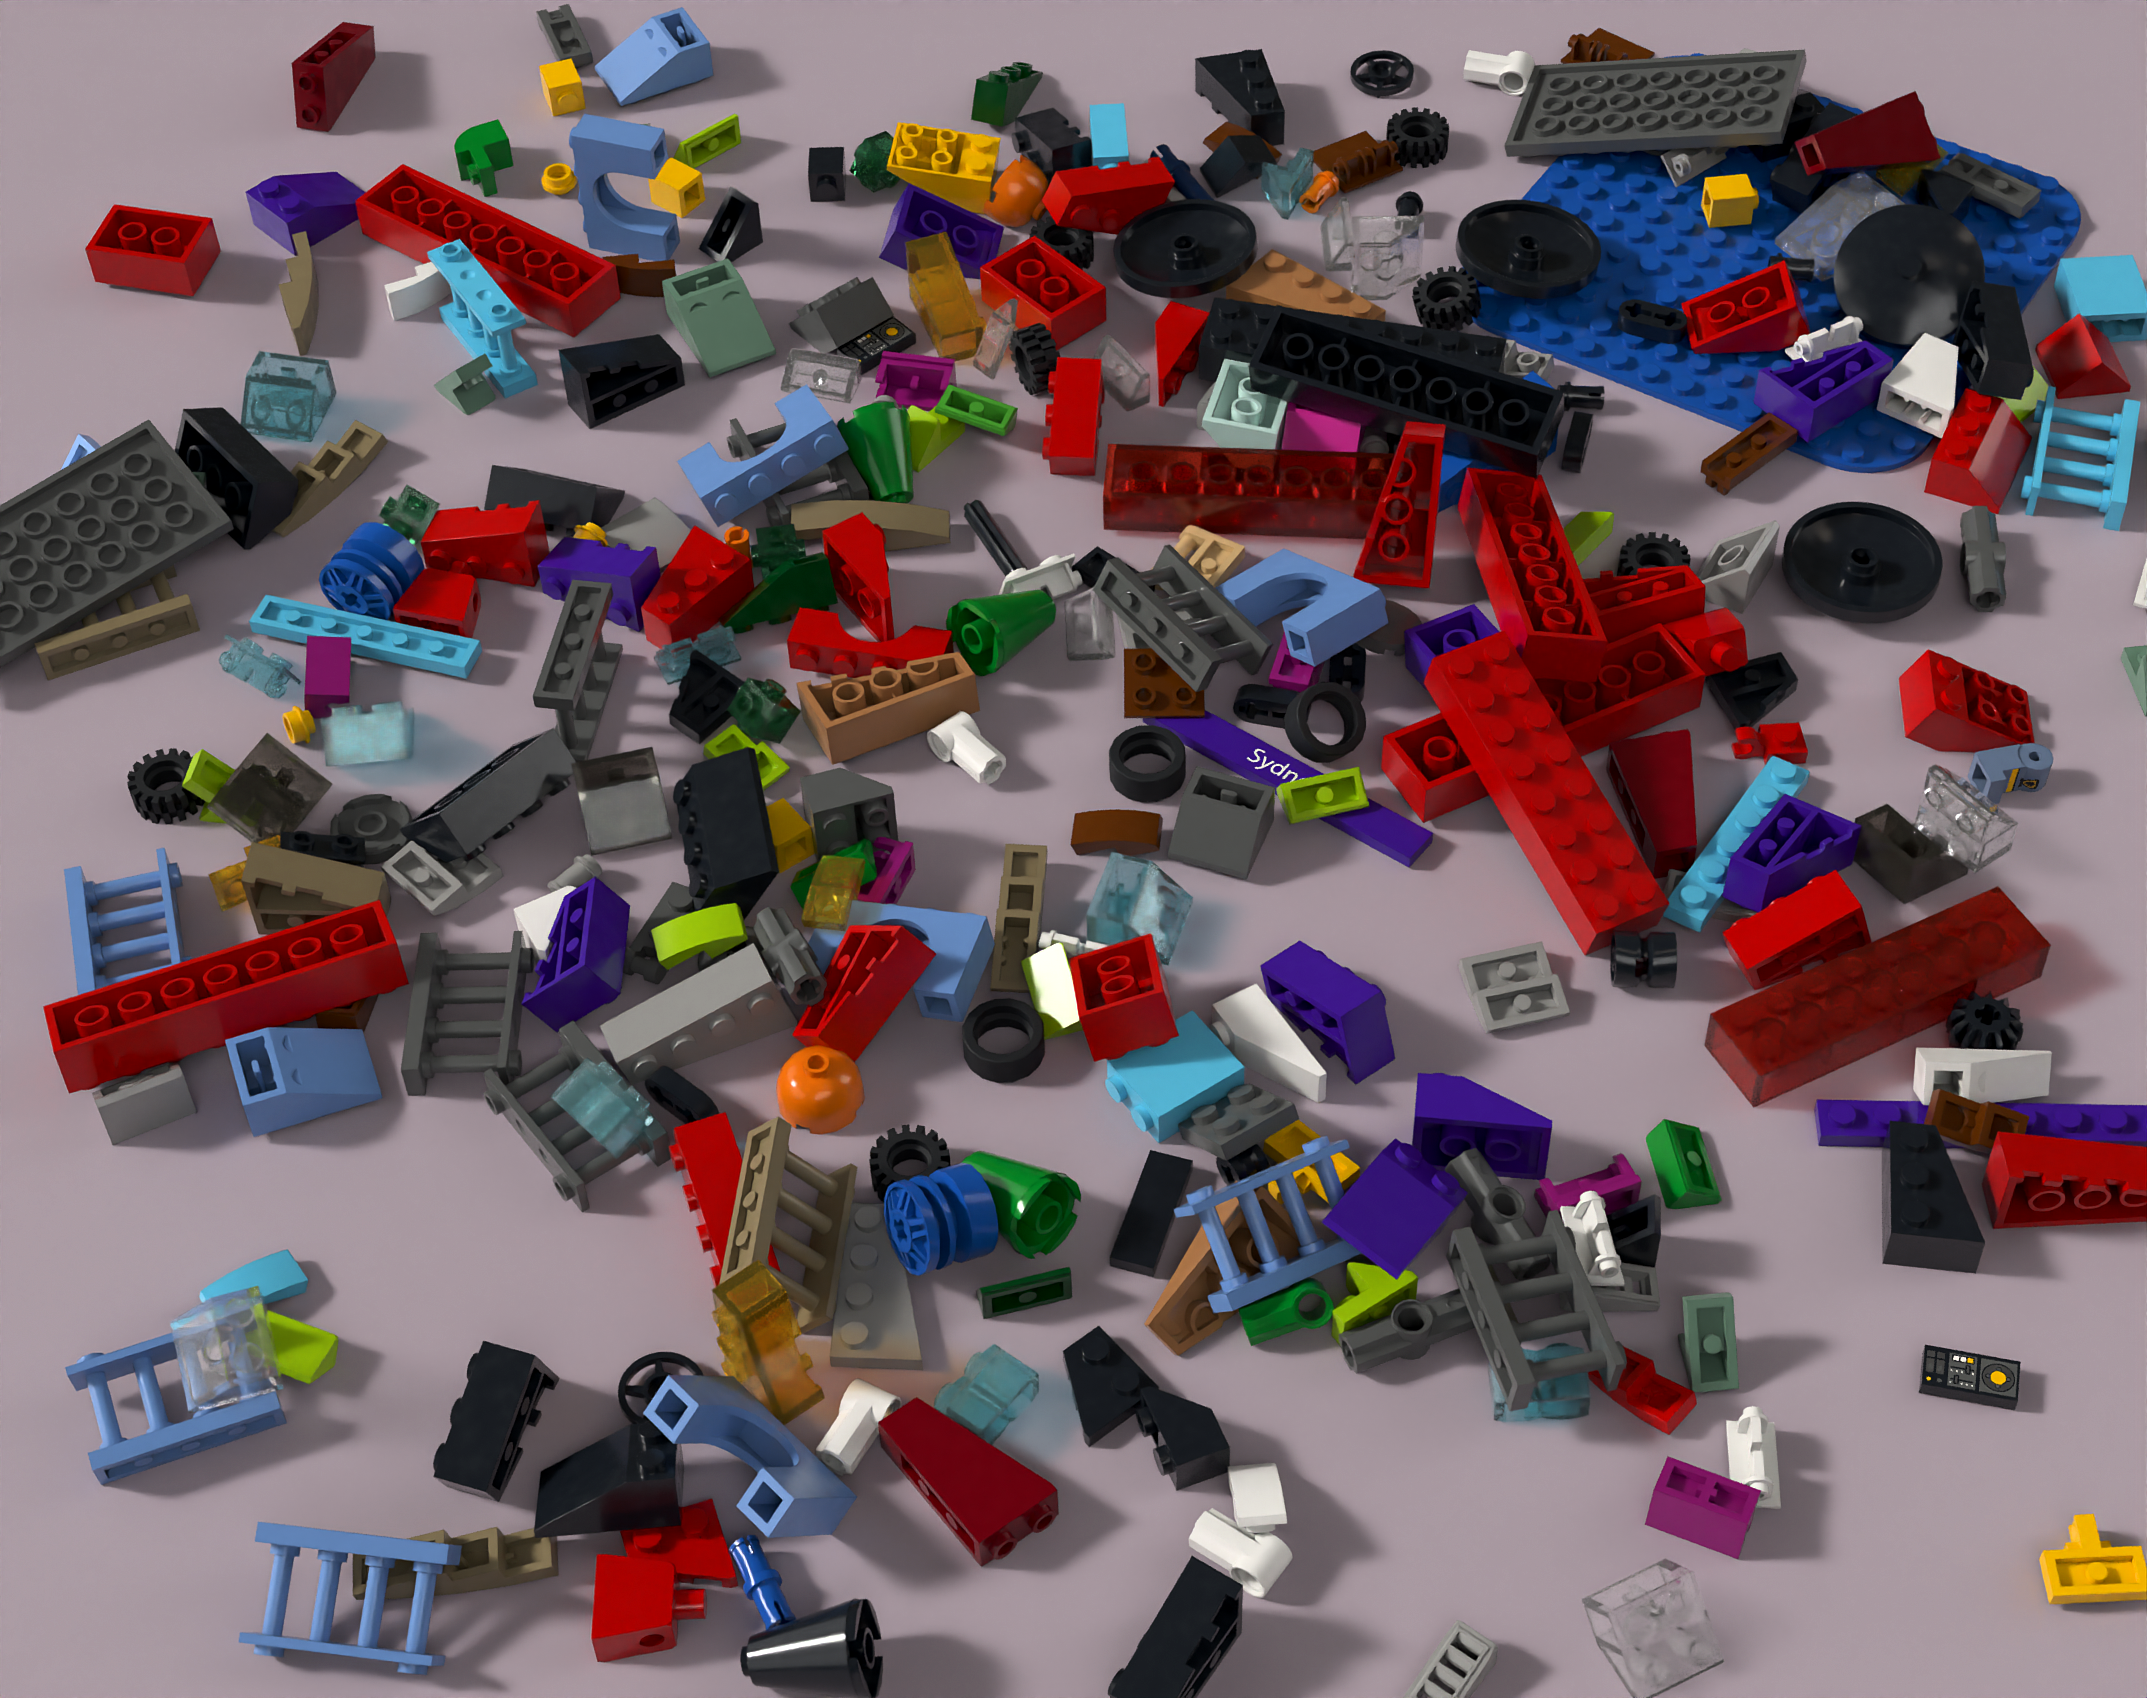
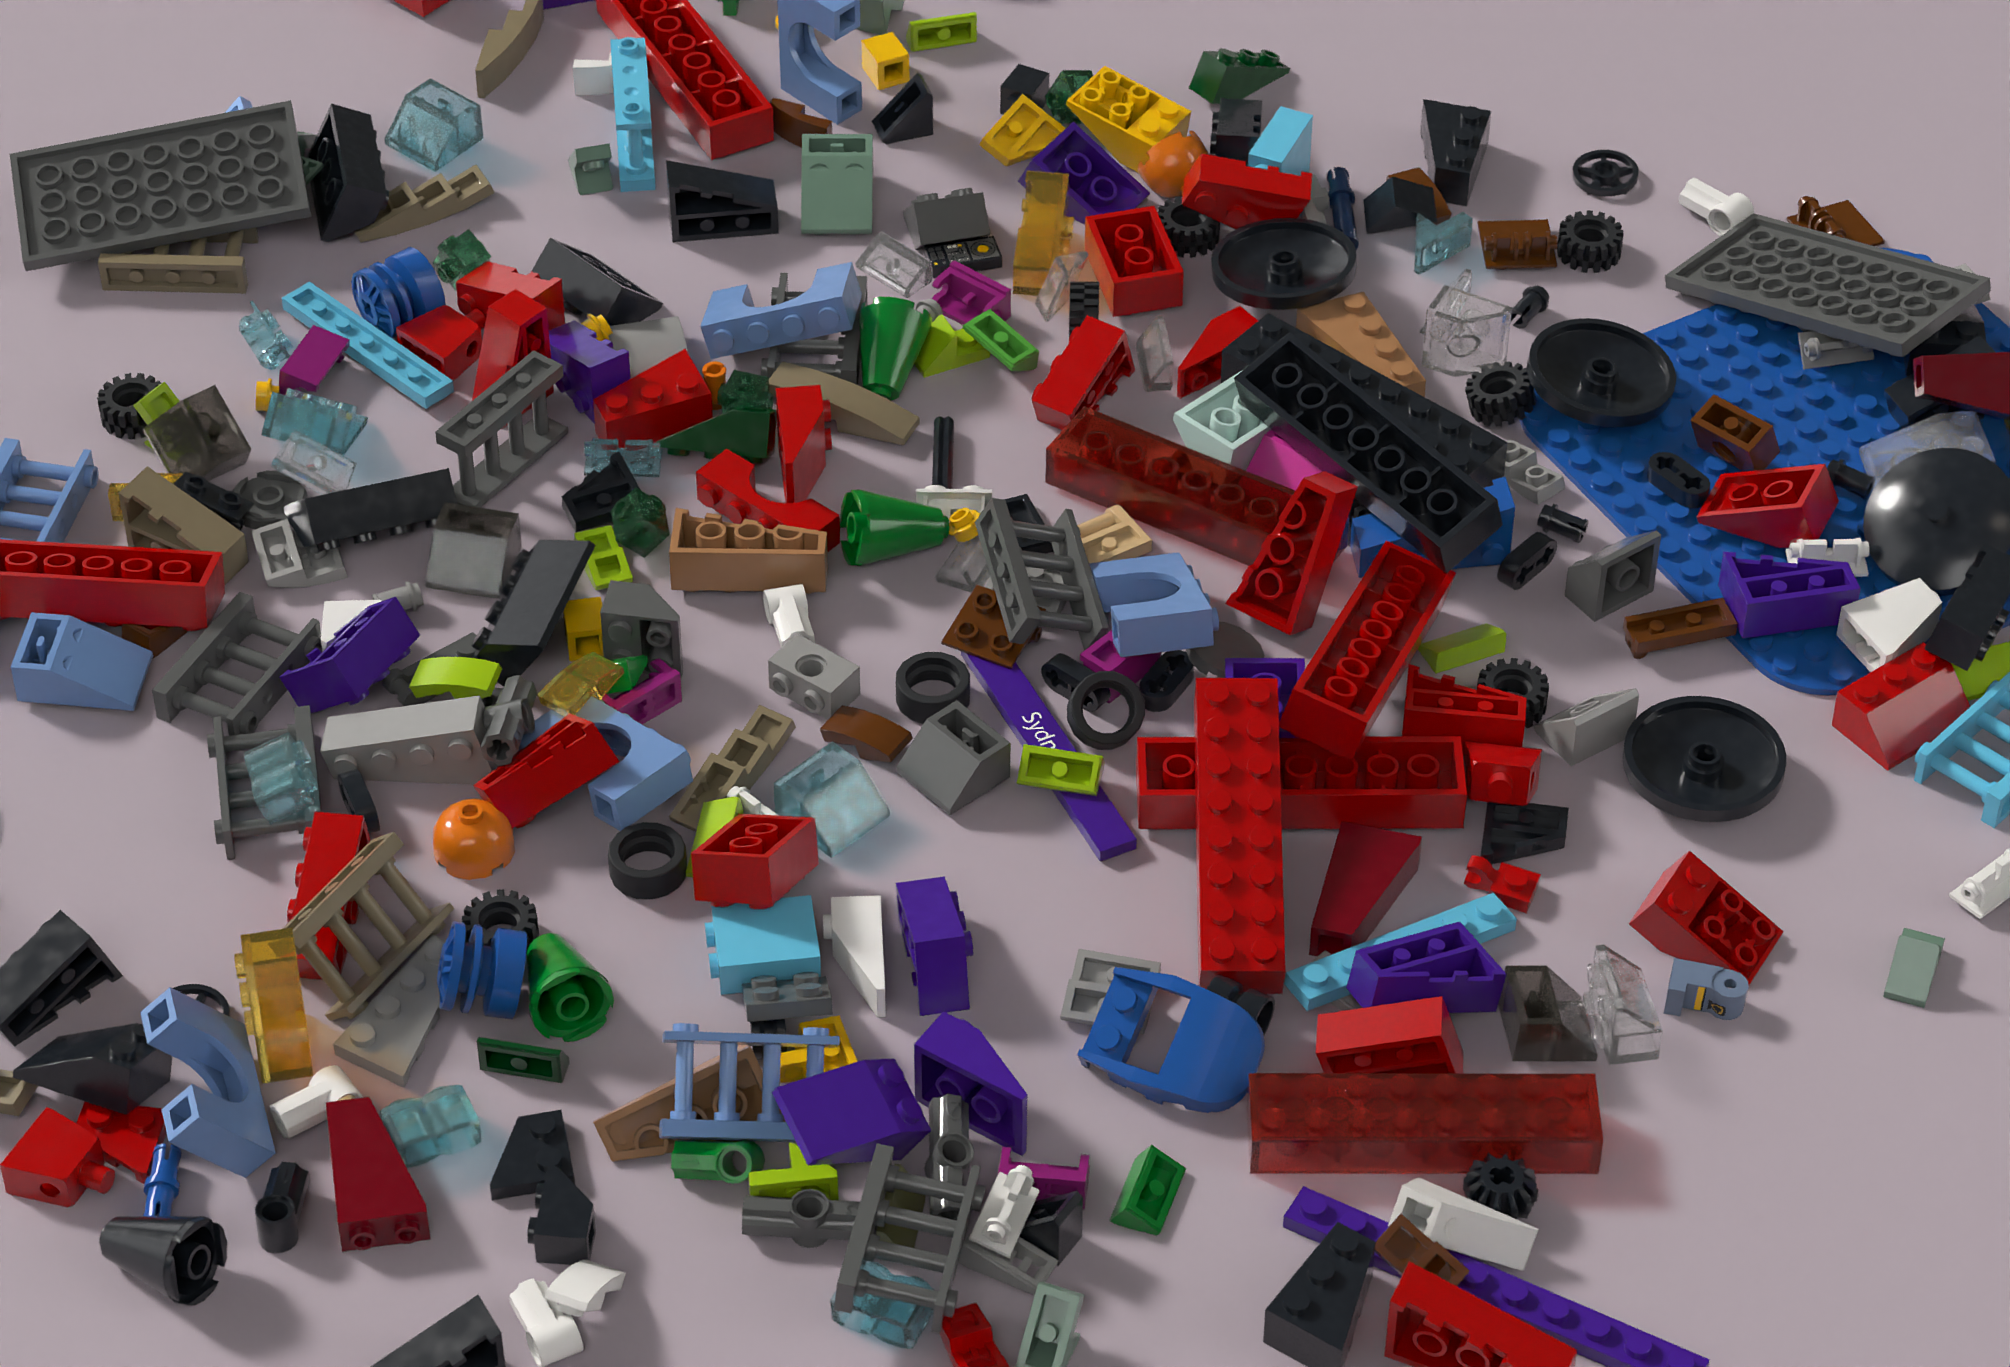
camera: 25 degrees right, 5 degrees down
(401, 776) = (313, 464): none -> clear slope
(534, 592) = (511, 332): none -> red wedge
(853, 211) = (1021, 133): none -> yellow wing
(899, 1549) = (281, 1207): none -> black piece
(1032, 796) = (813, 676): none -> light grey brick
(1067, 596) = (963, 524): none -> yellow plate
(1151, 1213) = (651, 1059): black tile -> none
(1324, 185) = (1467, 256): orange pin -> none
(1660, 1011) = (1207, 1058): none -> blue slope
(1662, 425) = (1614, 575): none -> dark grey slope
(1679, 264) = (1734, 435): none -> reddish brown brick
(1729, 200) = (1836, 397): yellow brick -> none
(1982, 559) = (1830, 800): dark grey piece -> none

